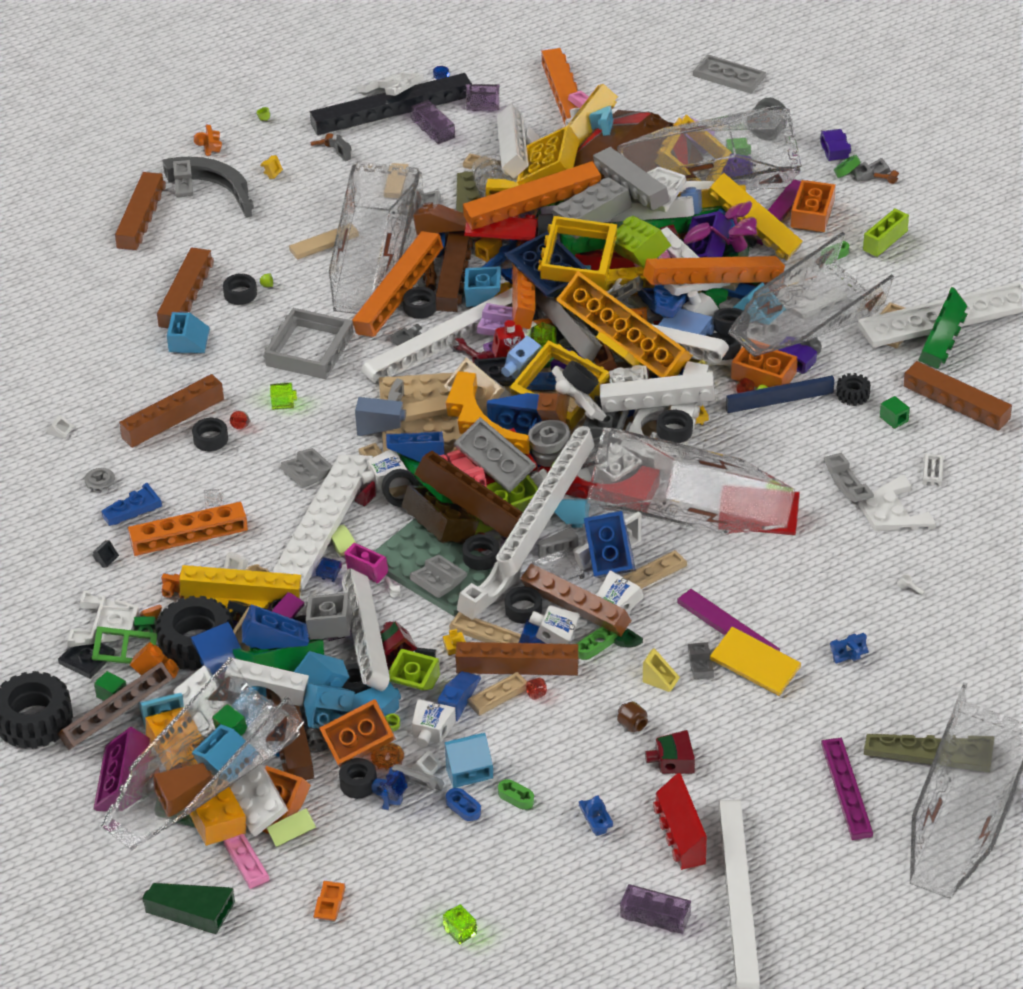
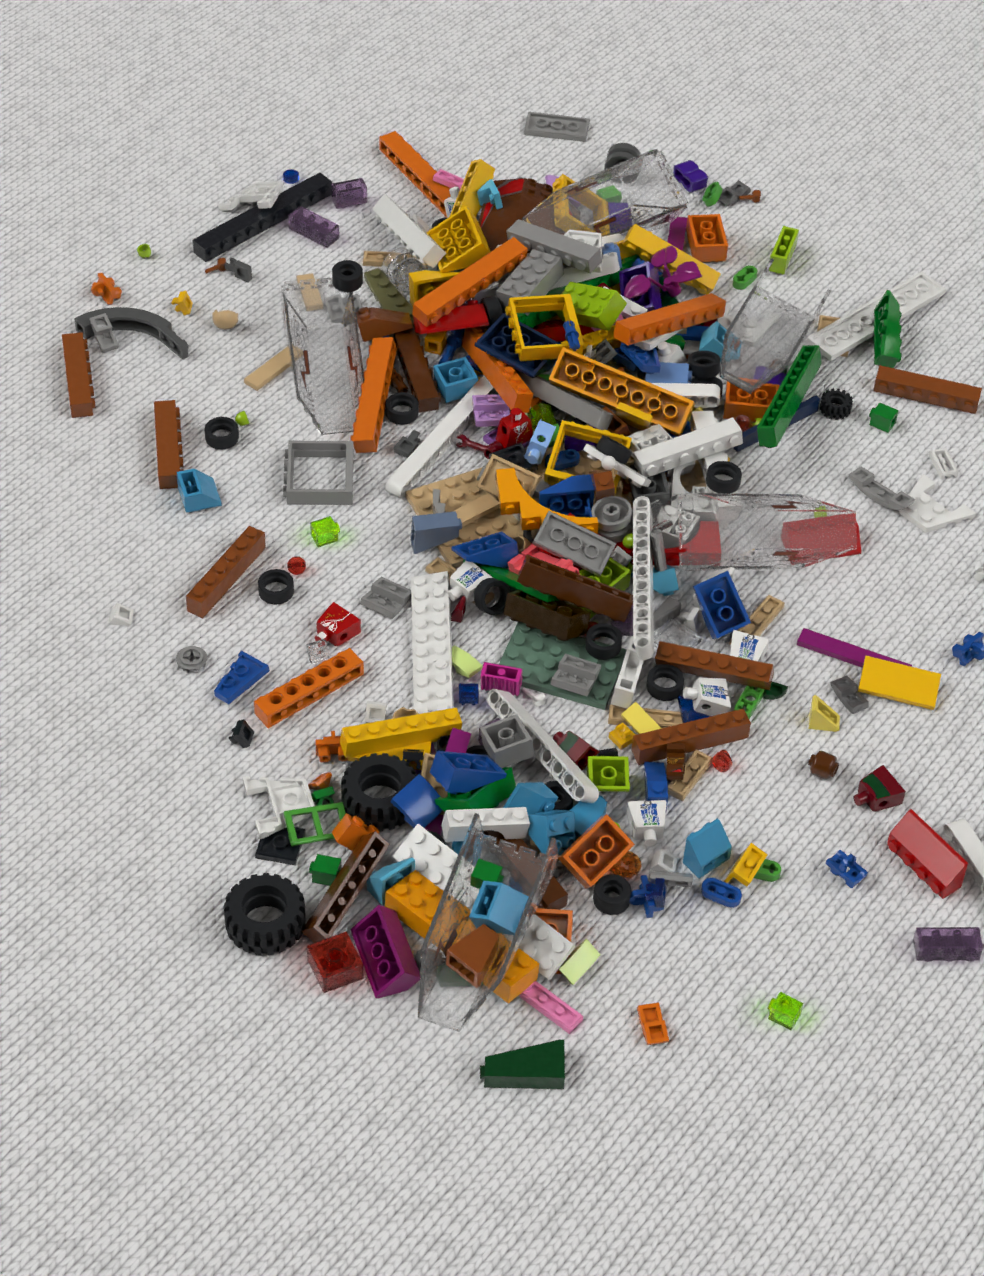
camera: 25 degrees left, 5 degrees up
(70, 767) = (335, 962): none -> clear red brick
(244, 481) = (337, 625): none -> red torso
(300, 188) = (225, 319): none -> tan hair
(415, 167) = (347, 276): none -> black tyre
(475, 629) = (639, 719): none -> light yellow tile
(486, 677) = (676, 761): none -> reddish brown leg
(499, 785) = (747, 865): none -> yellow panel
(578, 480) = (658, 550): none -> light grey slope
(595, 262) = (571, 335): none -> blue axle
(797, 368) = (789, 396): none -> green brick

